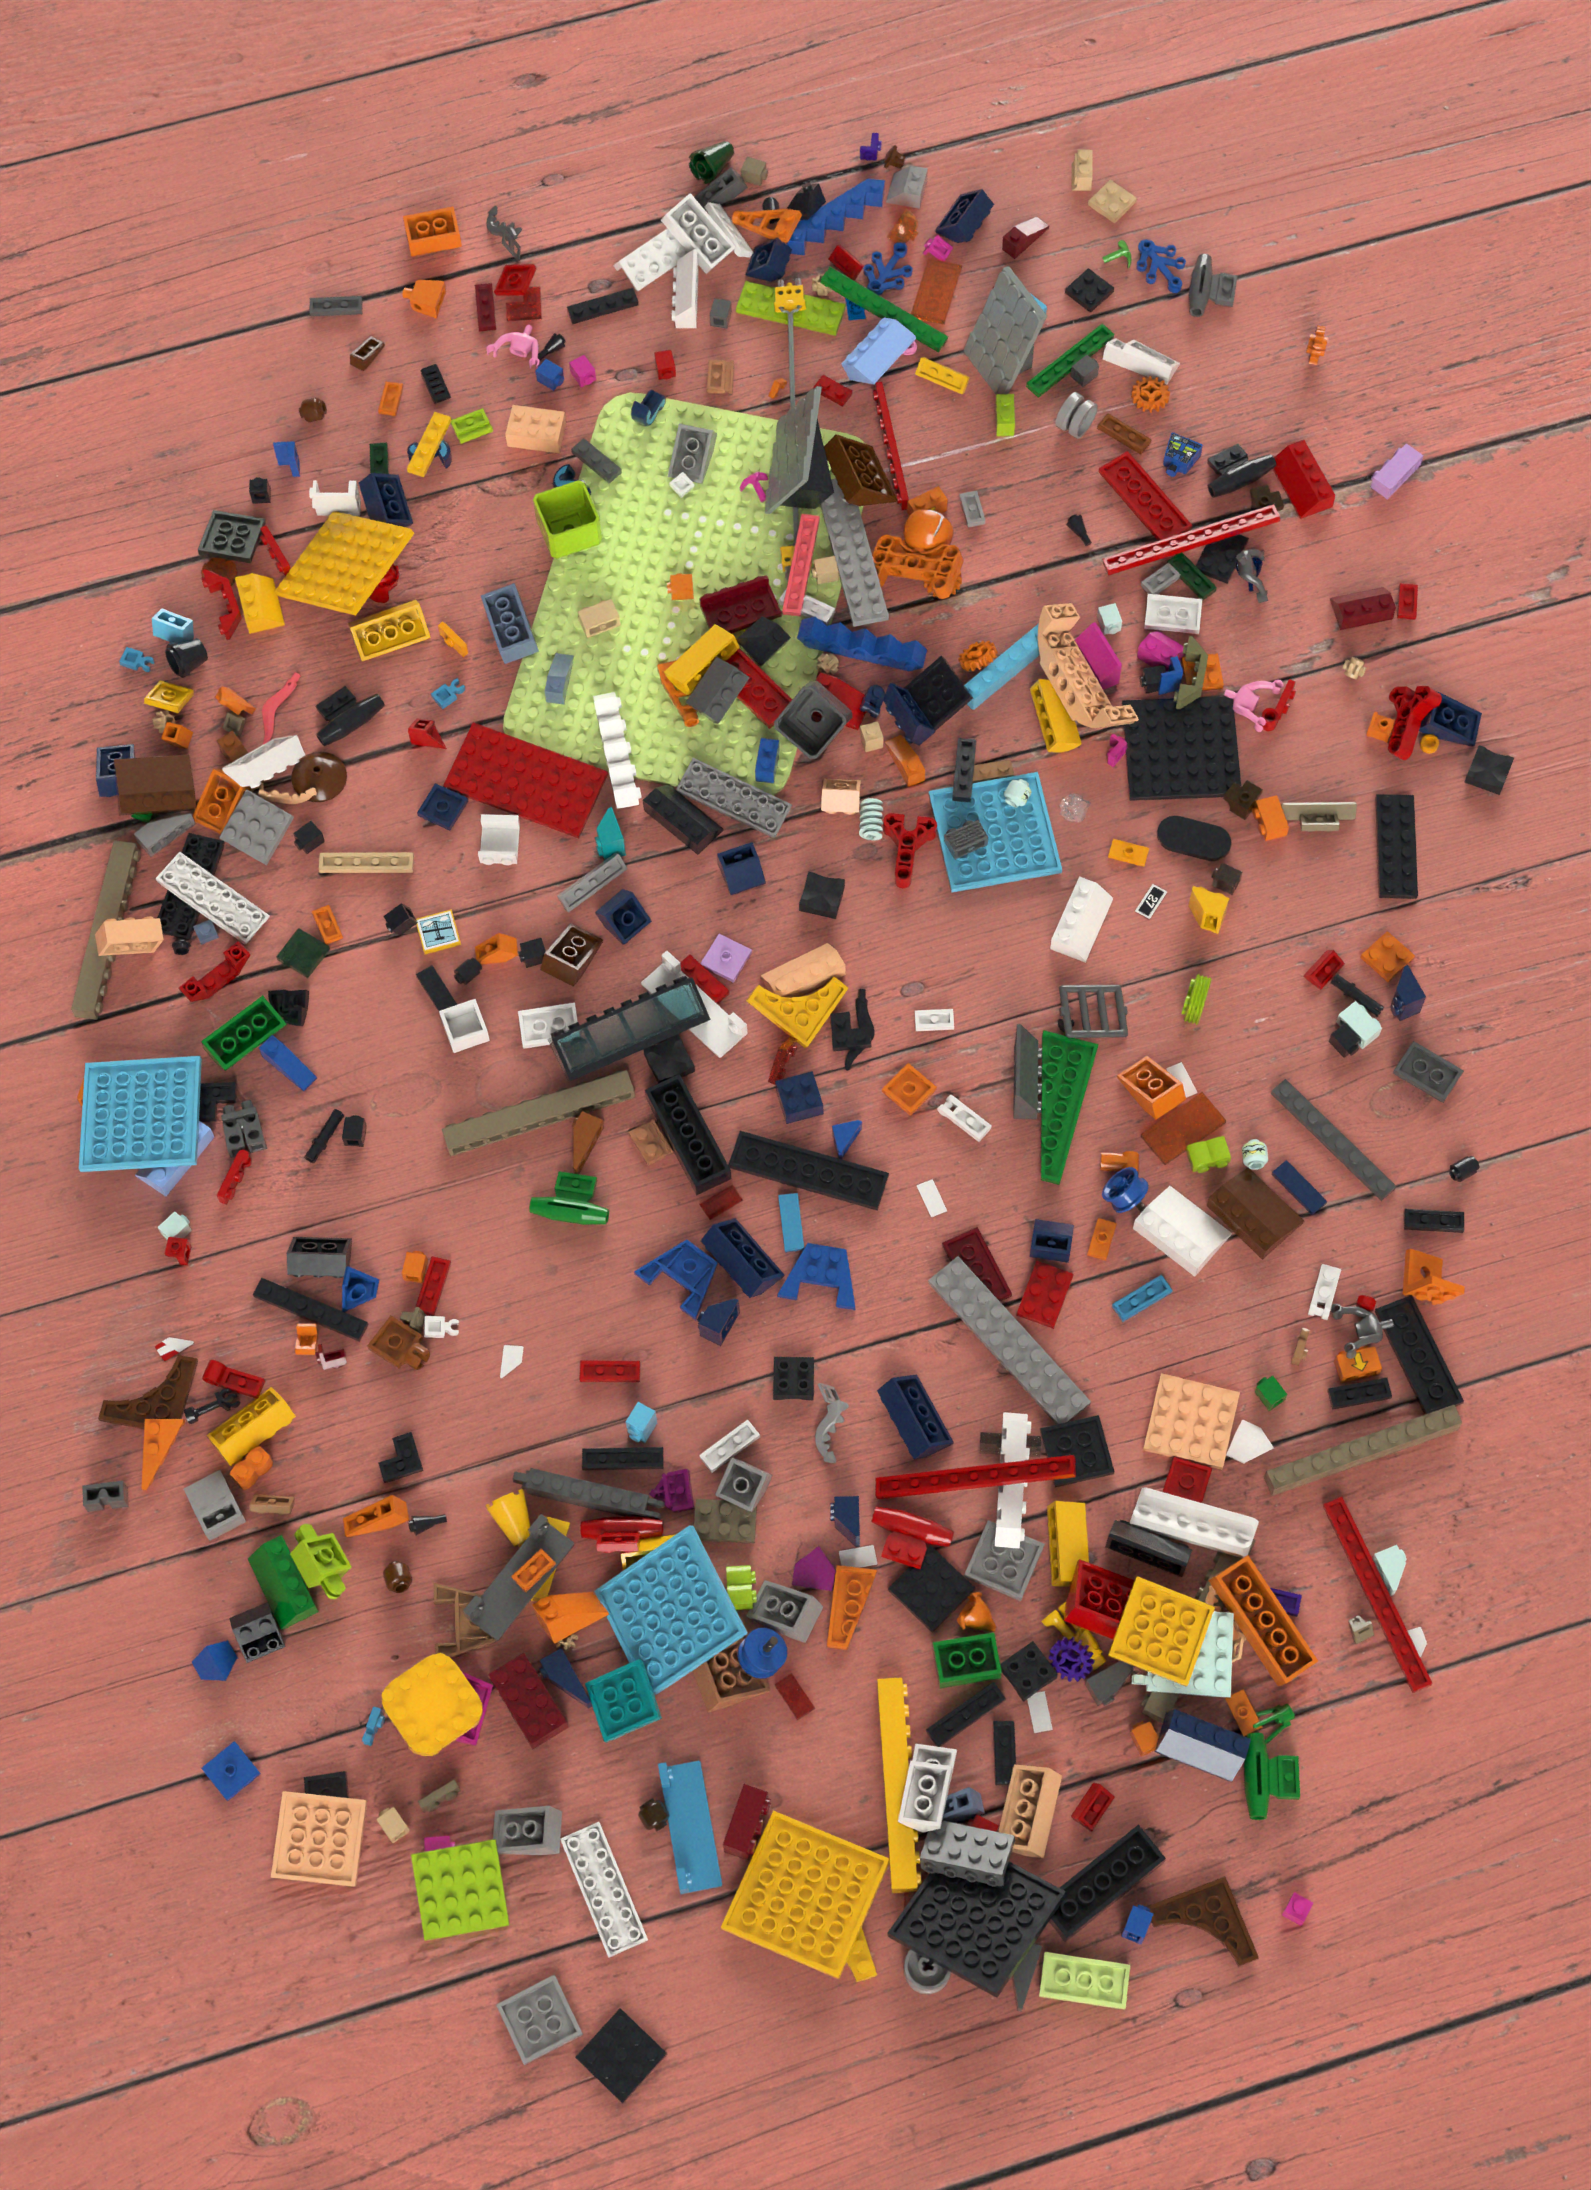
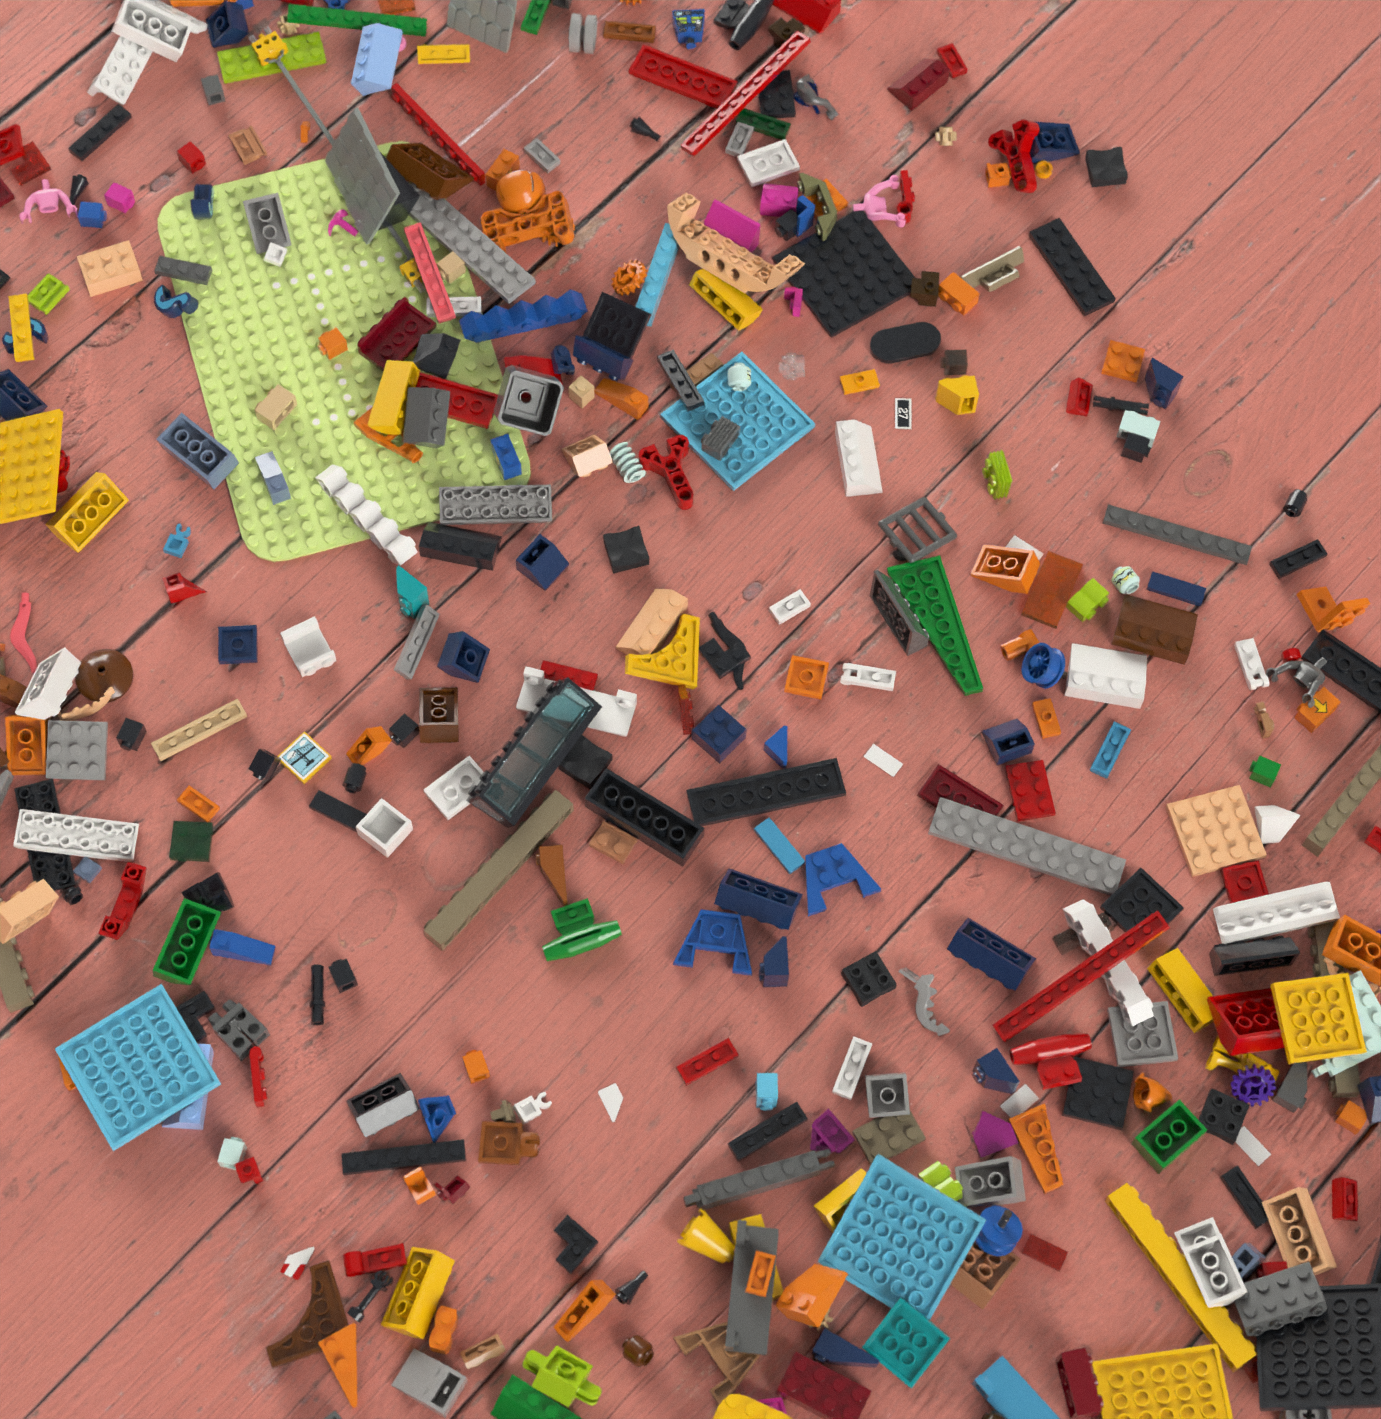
camera: 35 degrees left, 0 degrees up
(345, 714) = (94, 607): black plate -> none
(433, 1285) = (501, 1074): red tile -> none
(452, 639) = (152, 491): light orange plate -> none
(526, 780) = (298, 582): red plate -> none
(567, 508) = (193, 321): lime plate -> none
(620, 1532) = (810, 1197): red plate -> none
(686, 291) = (170, 83): white slope -> none
(721, 1202) = (707, 861): clear red tile -> none
(726, 958) = (576, 647): lavender plate -> none
(828, 664) = (503, 348): tan gear -> none
(833, 390) = (345, 108): red plate -> none
(854, 311) = (330, 34): clear blue sticker -> none
(965, 1714) = (1195, 1183): black plate -> none
(1005, 415) = (519, 62): lime brick -> none
(1109, 619) = (718, 190): light aqua brick -> none
(1359, 1393) = (1333, 732): black plate -> none
(1428, 1072) = (1217, 439): dark grey plate -> none

